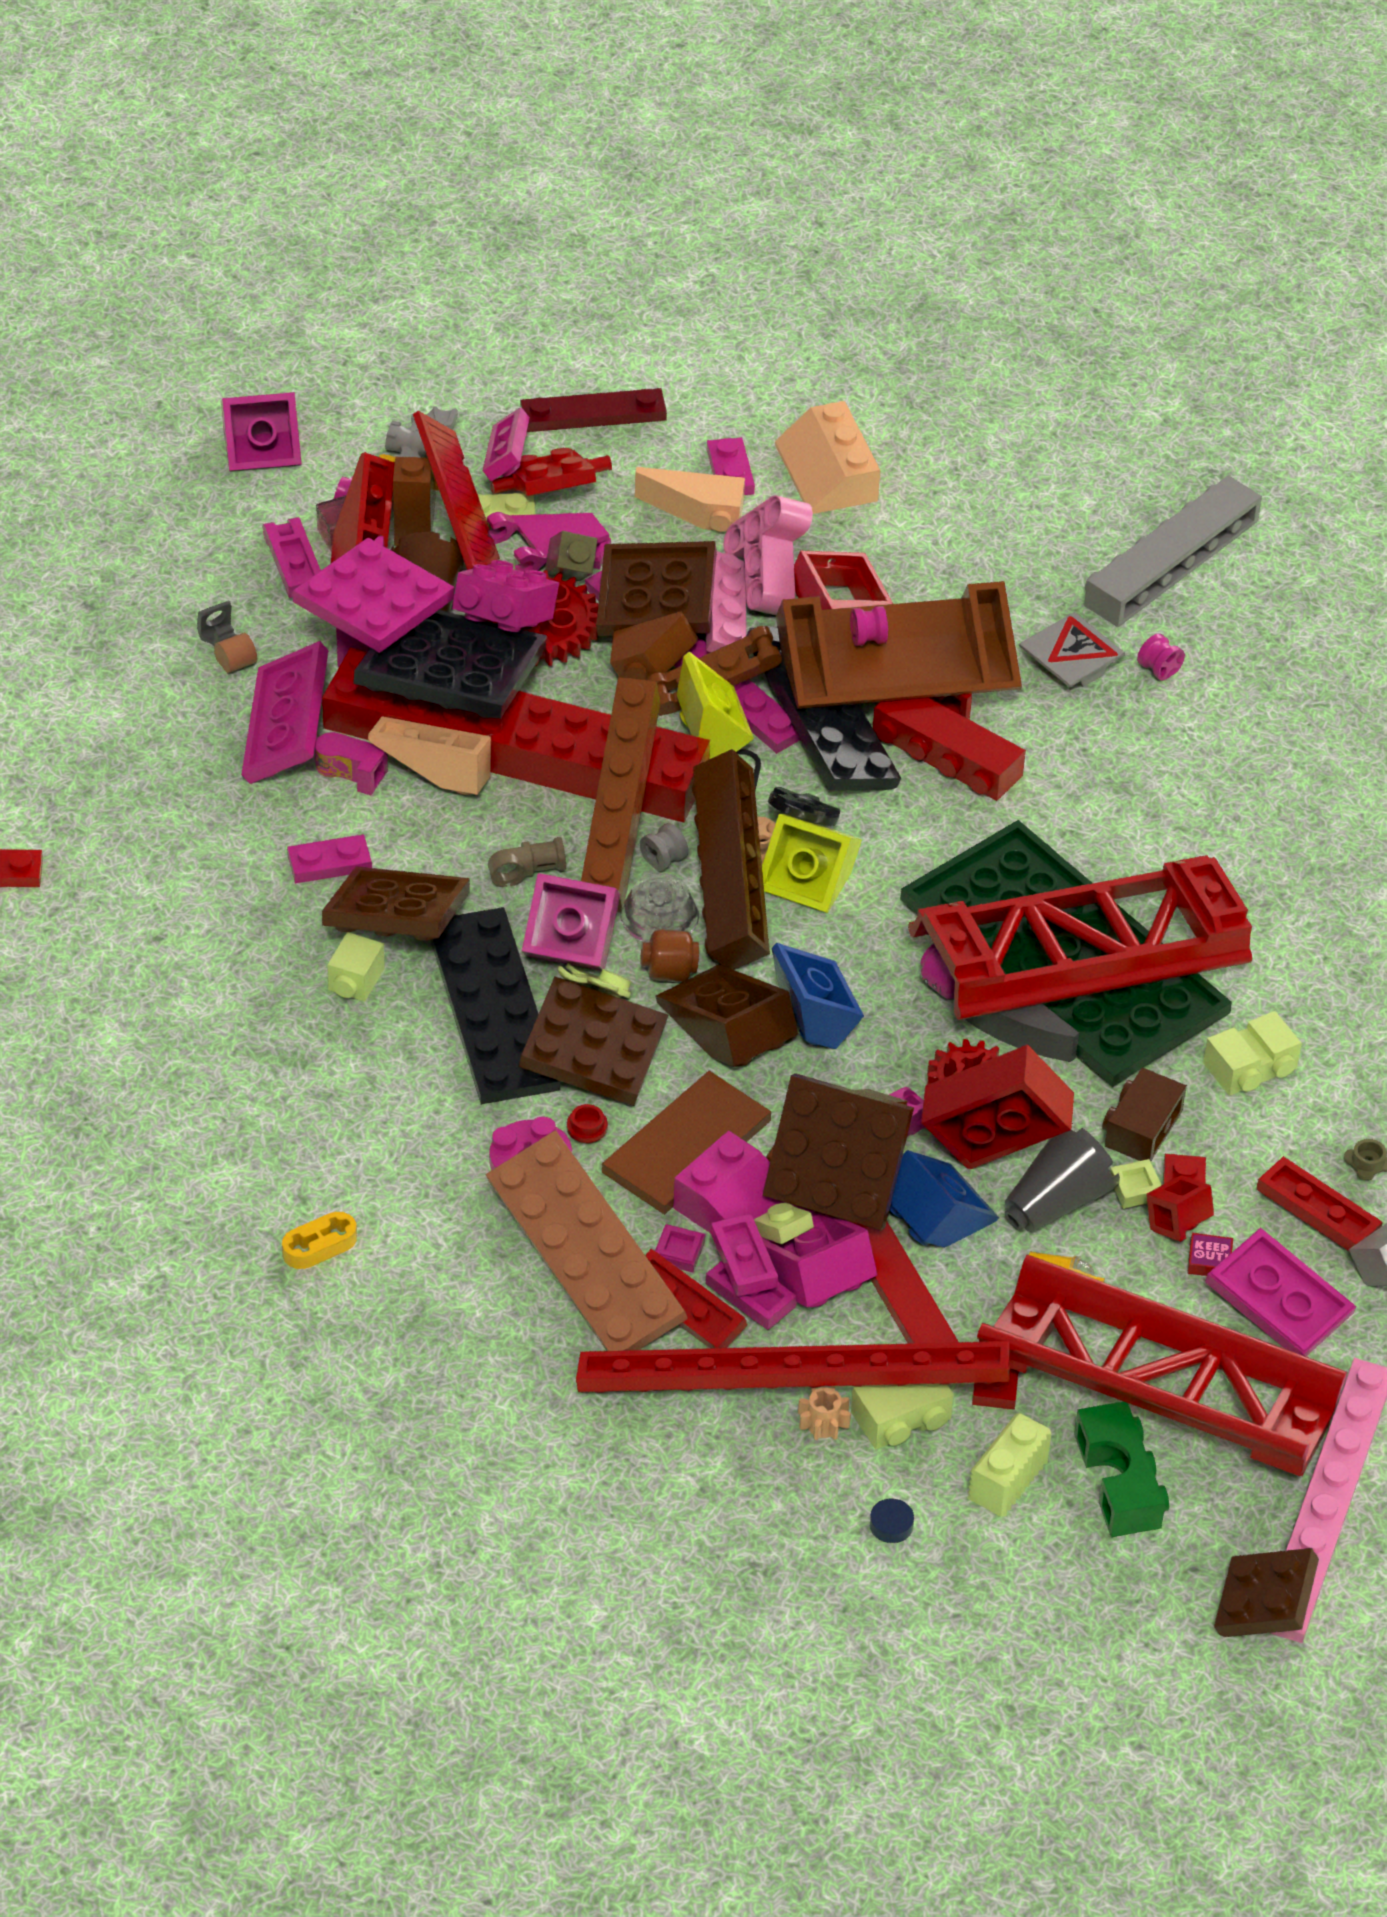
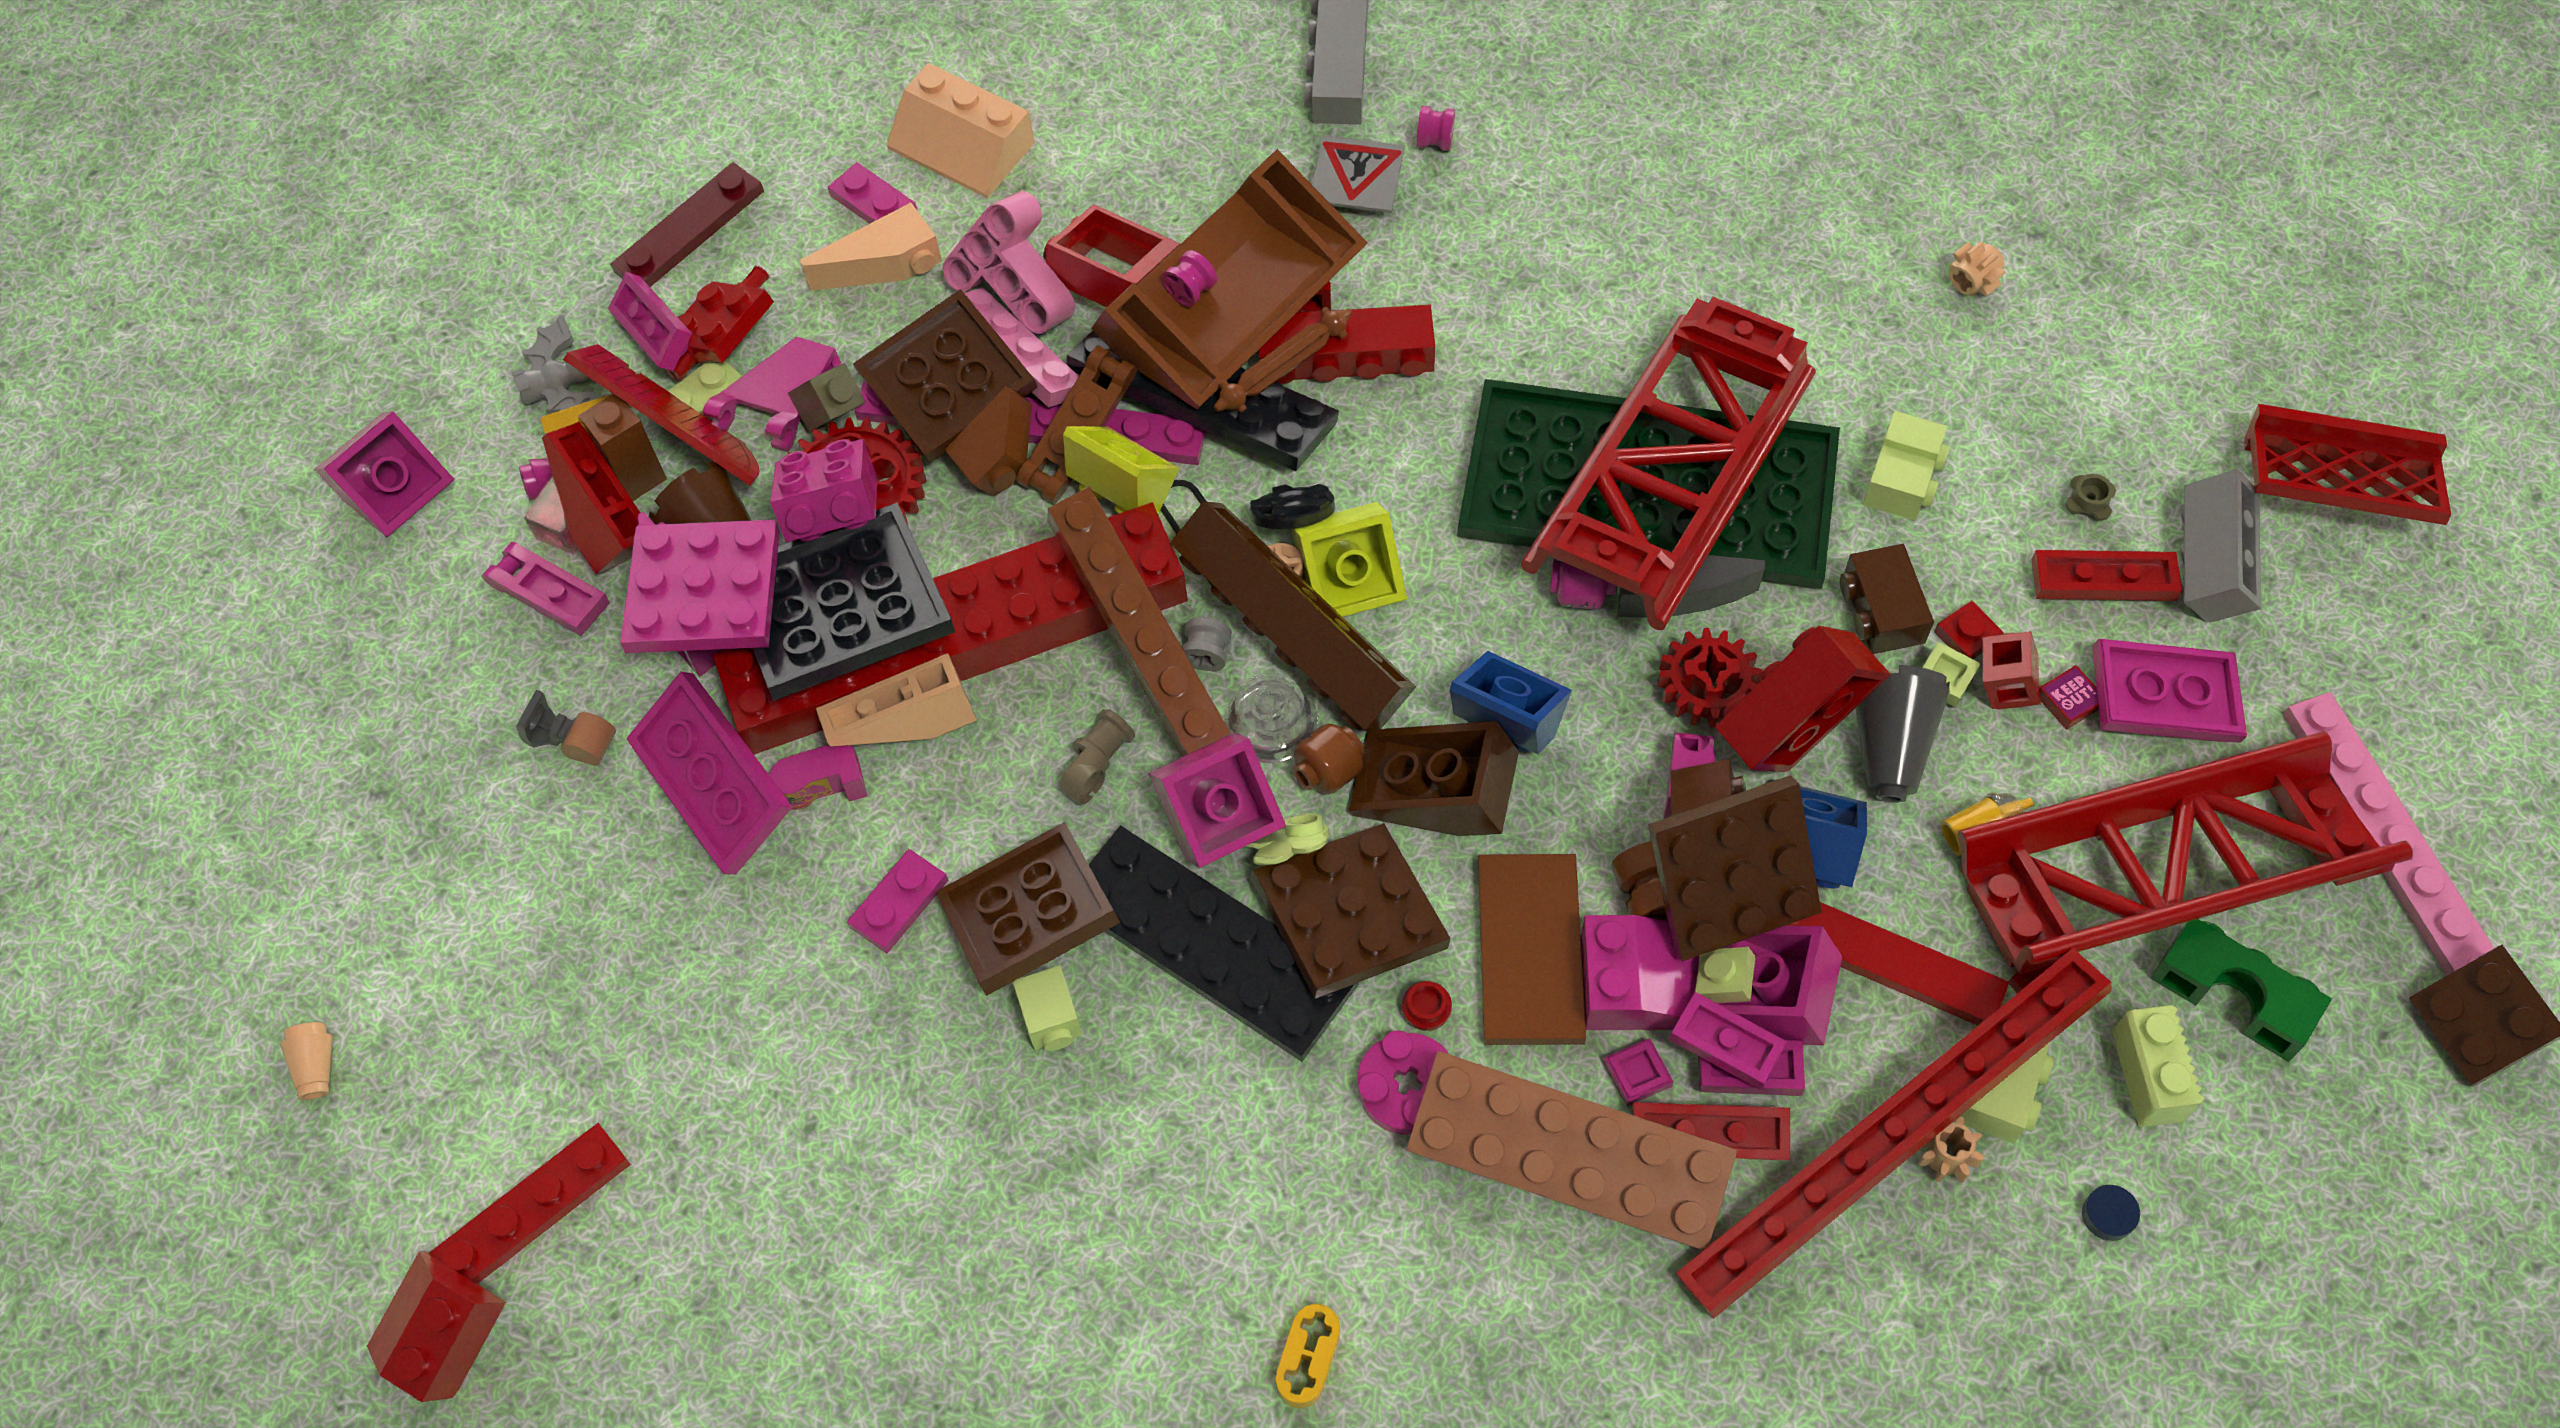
camera: 35 degrees left, 15 degrees up
(885, 715) = (1283, 360): none -> dark orange wheel

